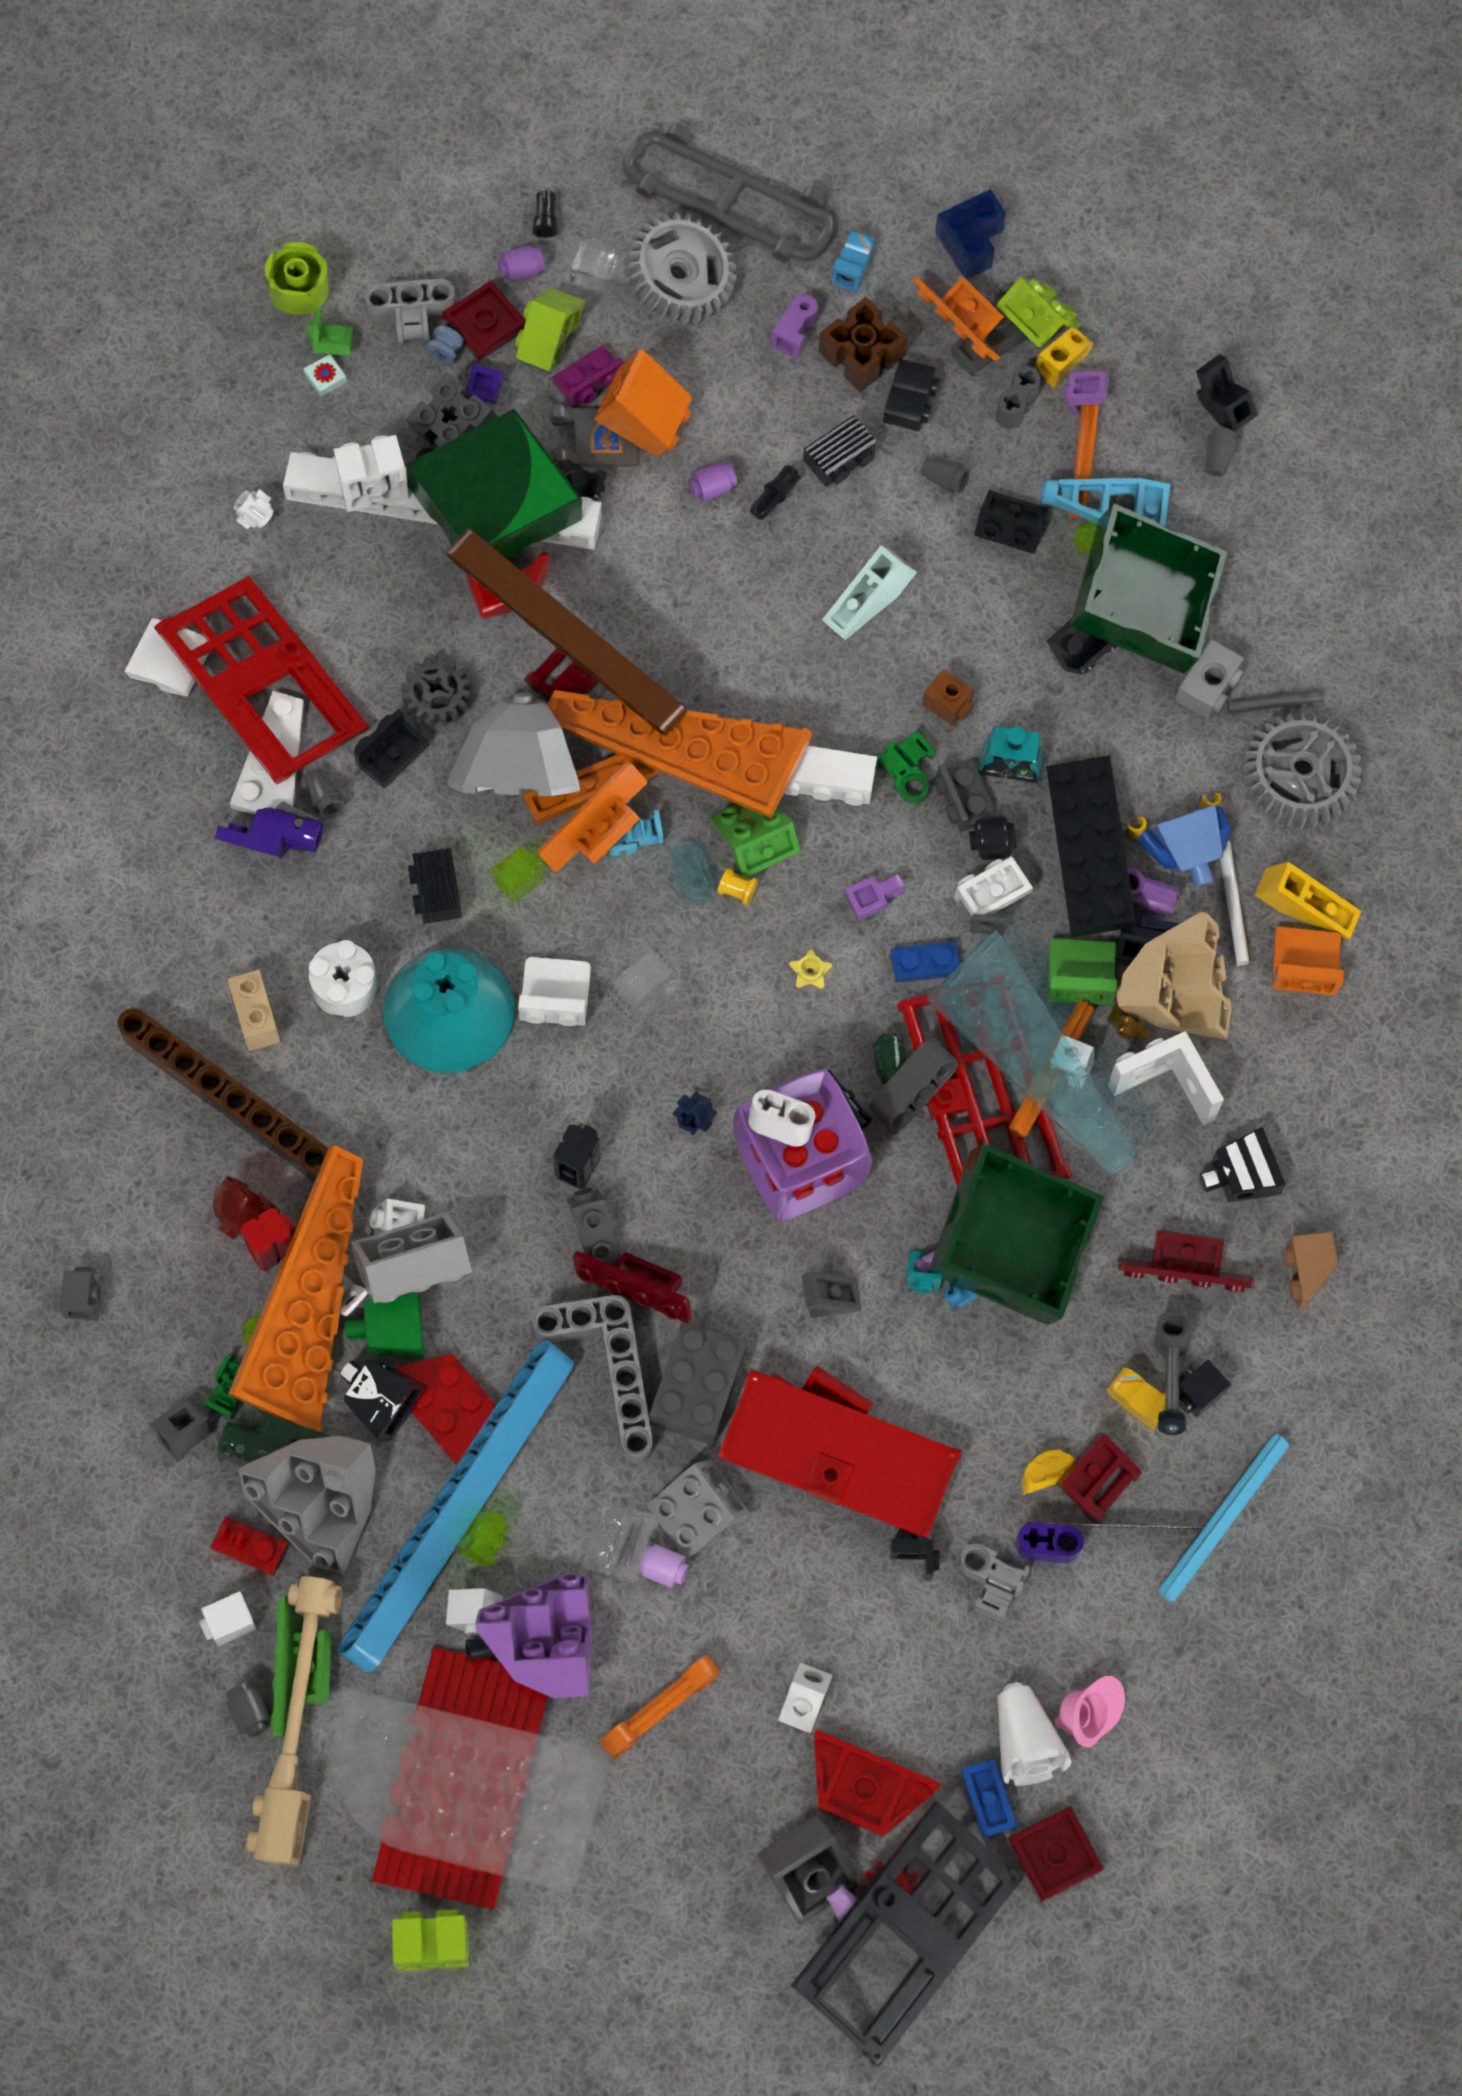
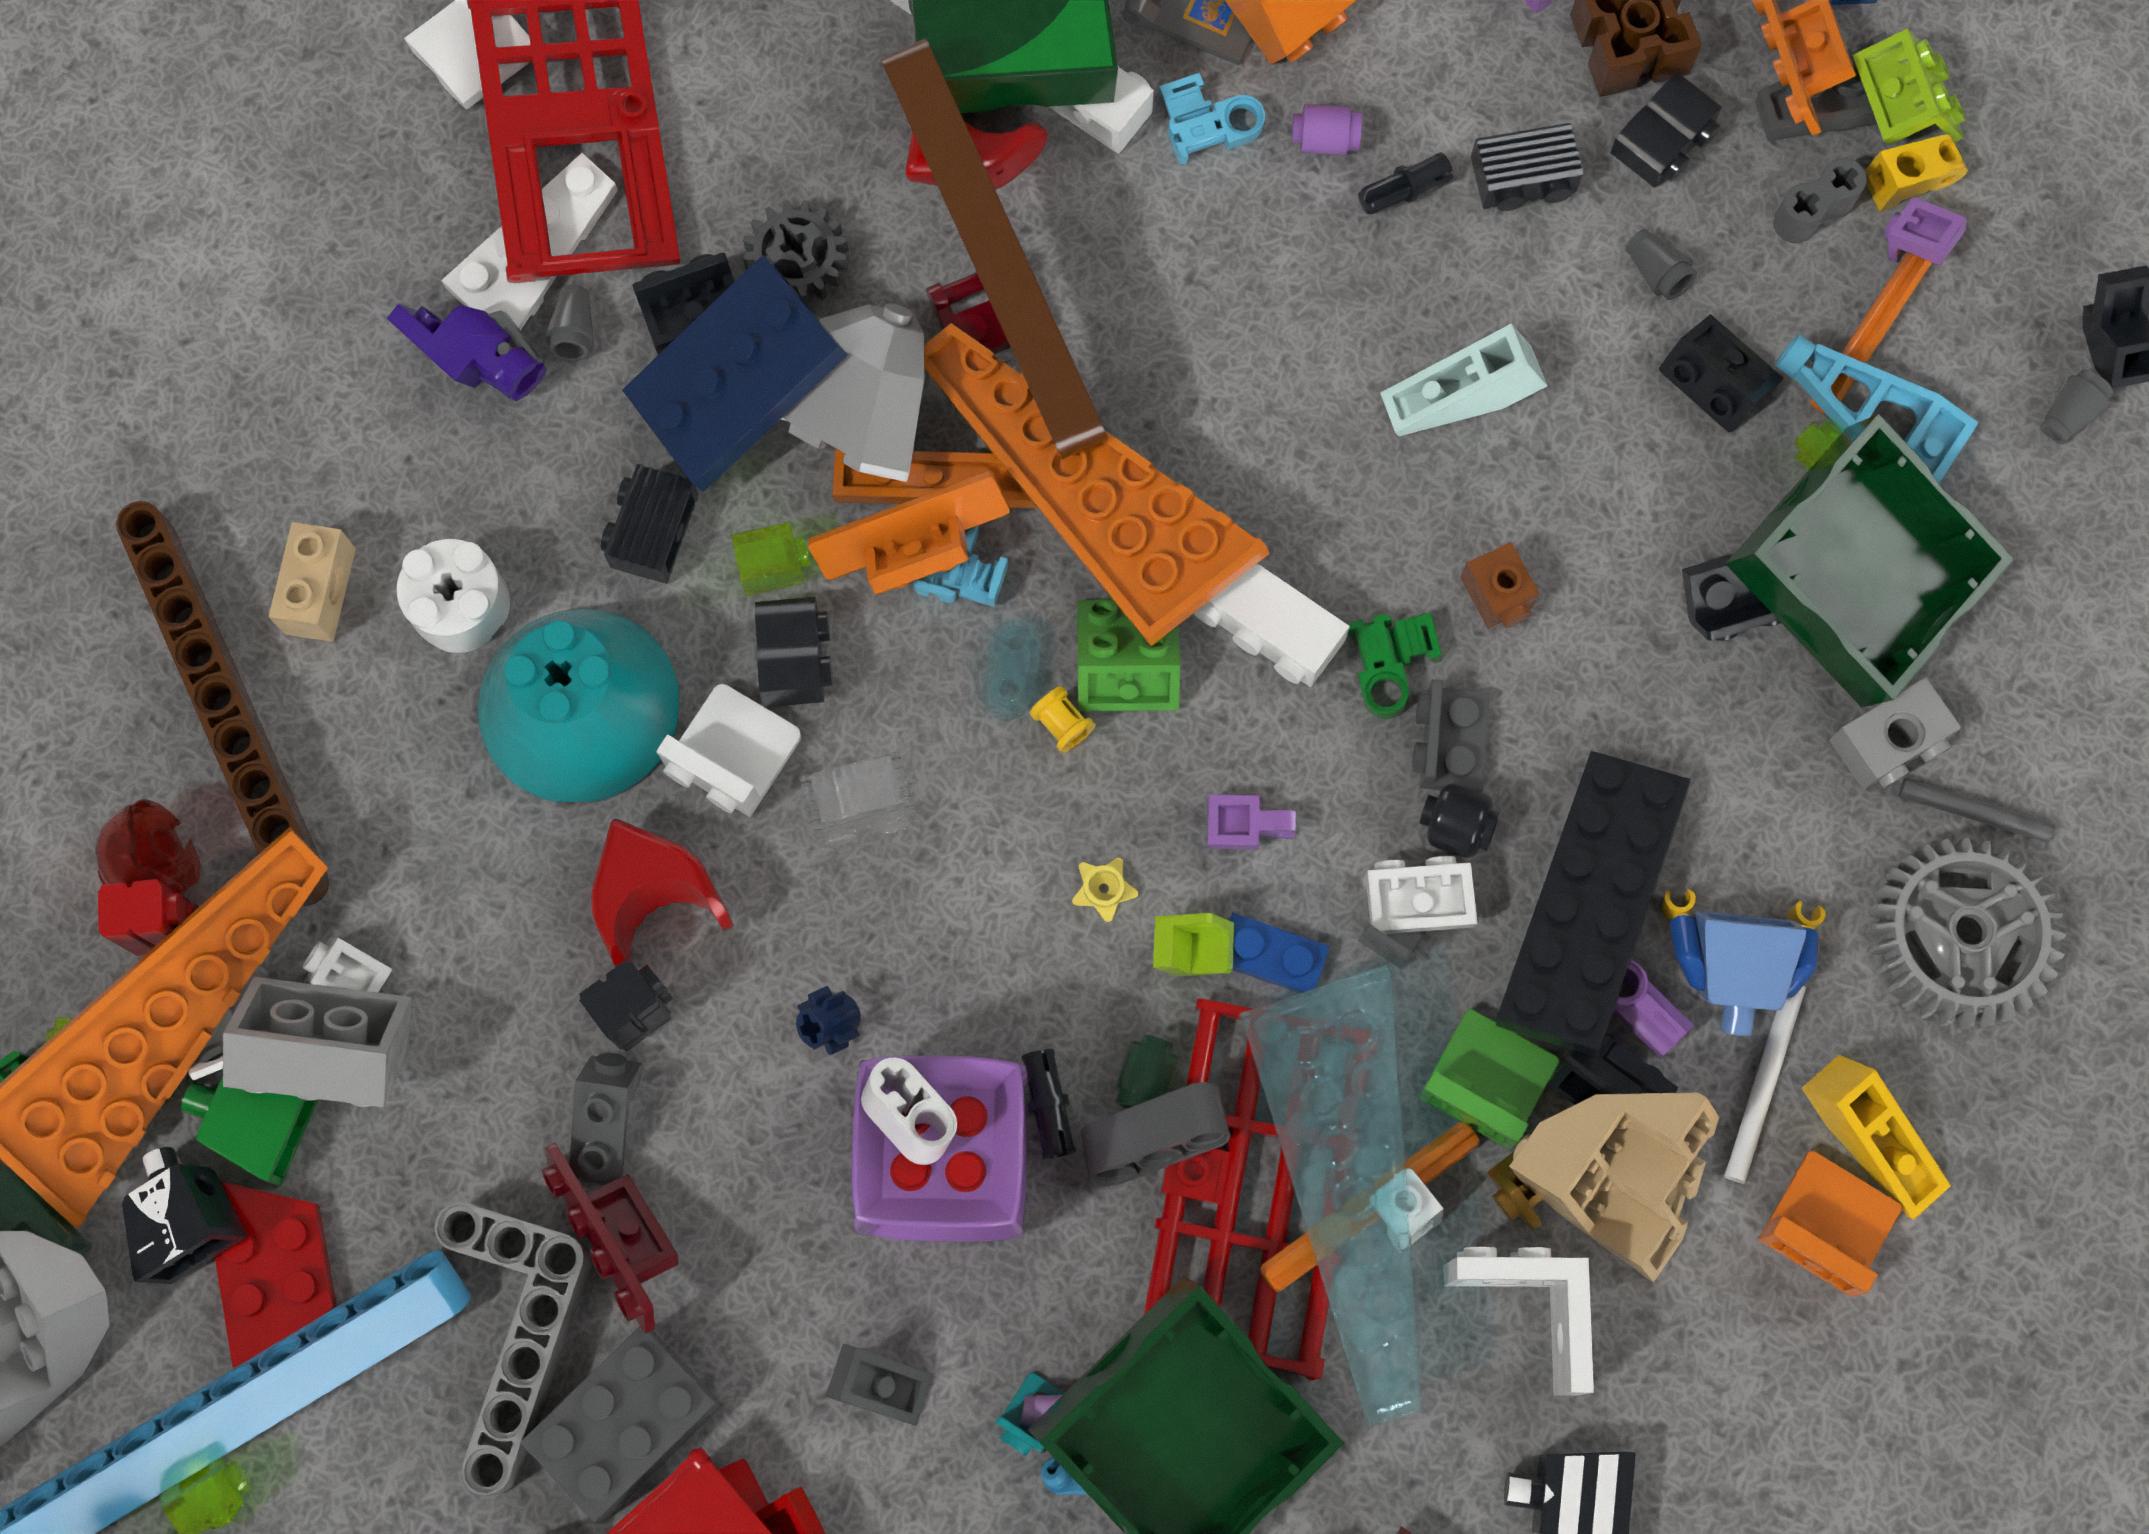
camera: 30 degrees right, 5 degrees up
(443, 775) = (734, 373): none -> dark blue plate
(546, 1080) = (637, 877): none -> red animal
(560, 920) = (791, 651): none -> black brick
(584, 482) = (1142, 50): black bracket -> none
(634, 512) = (1200, 127): none -> medium azure piece
(880, 974) = (1193, 944): none -> lime panel
(1012, 754) = (1549, 713): teal torso -> none

